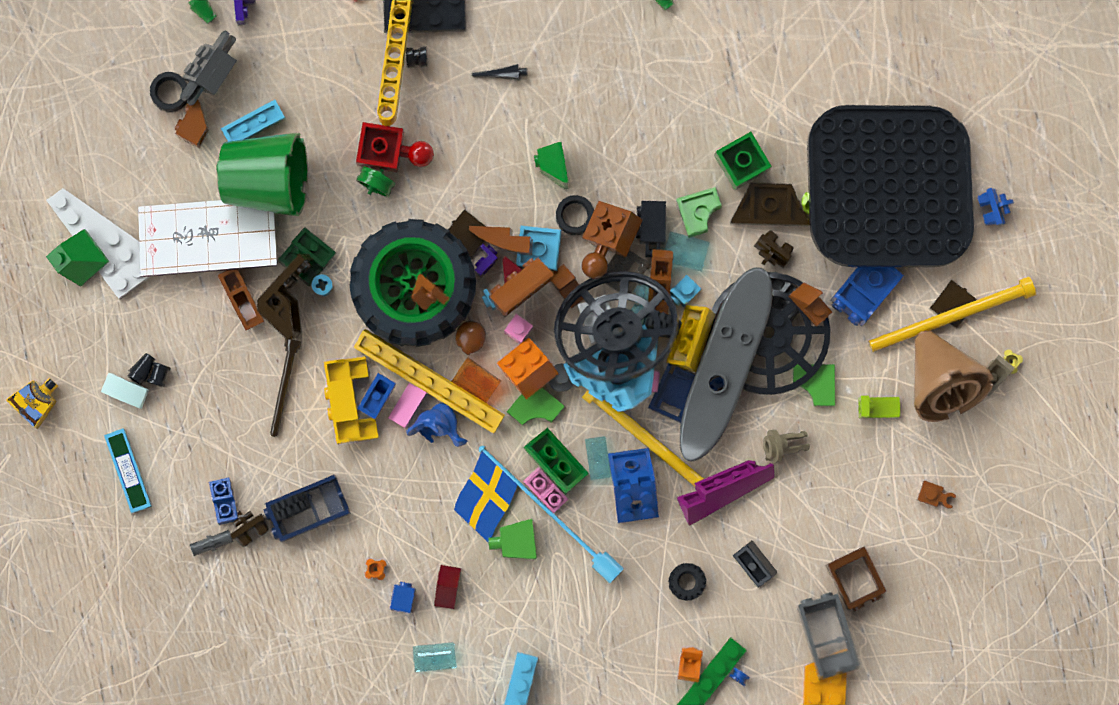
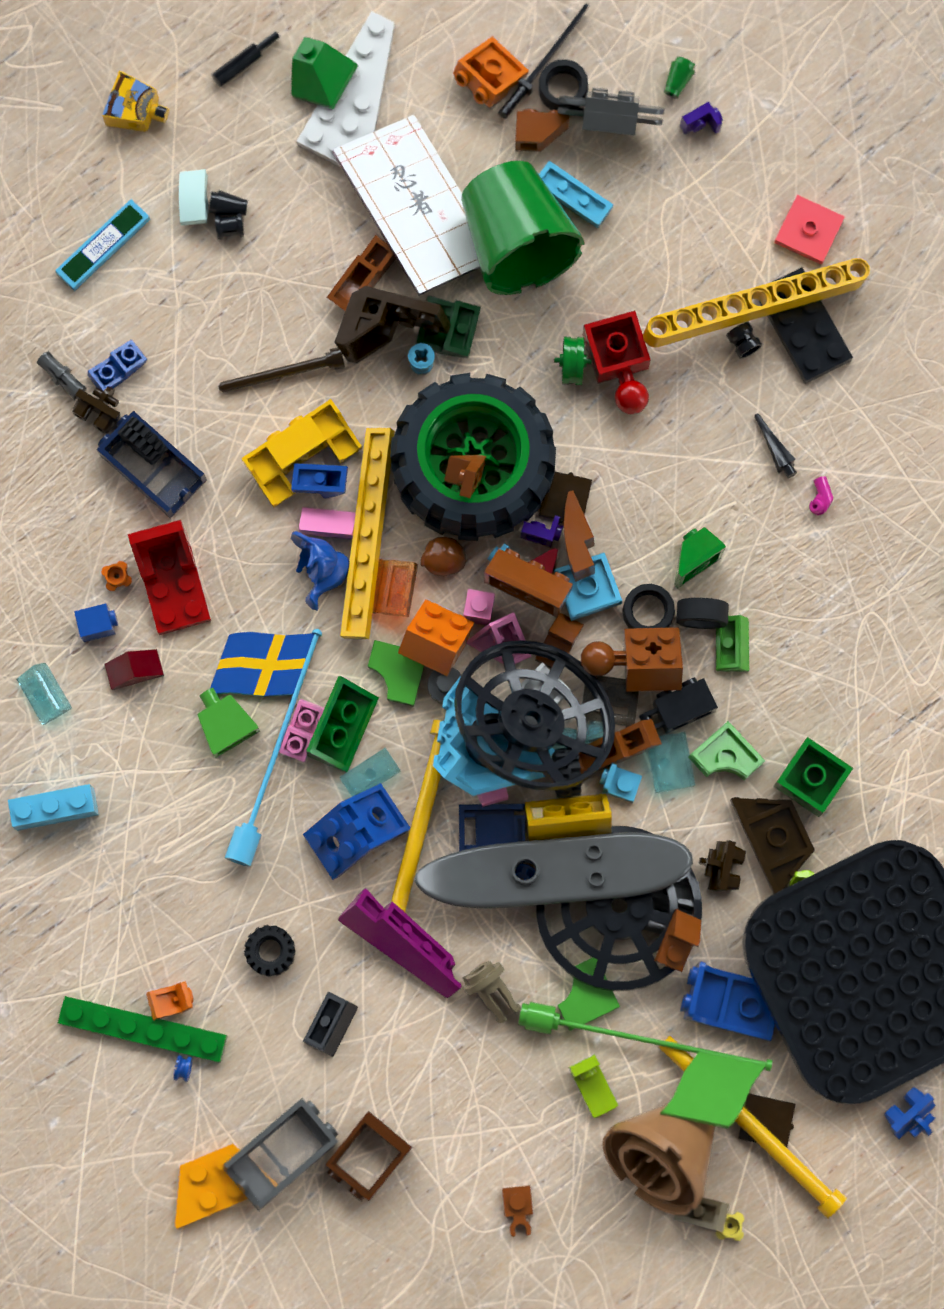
camera: 70 degrees right, 5 degrees down
(37, 308) = (242, 60): none -> black axle
(134, 138) = (489, 72): none -> orange plate
(156, 119) = (525, 86): none -> black sword
(397, 532) = (170, 576): none -> red bracket
(545, 325) = (498, 632): none -> bright pink slope
(553, 58) = (823, 498): none -> dark pink arm
(596, 179) = (702, 613): none -> black tyre
(624, 169) = (733, 645): none -> bright green slope
(917, 328) = (710, 1088): none -> bright green flag

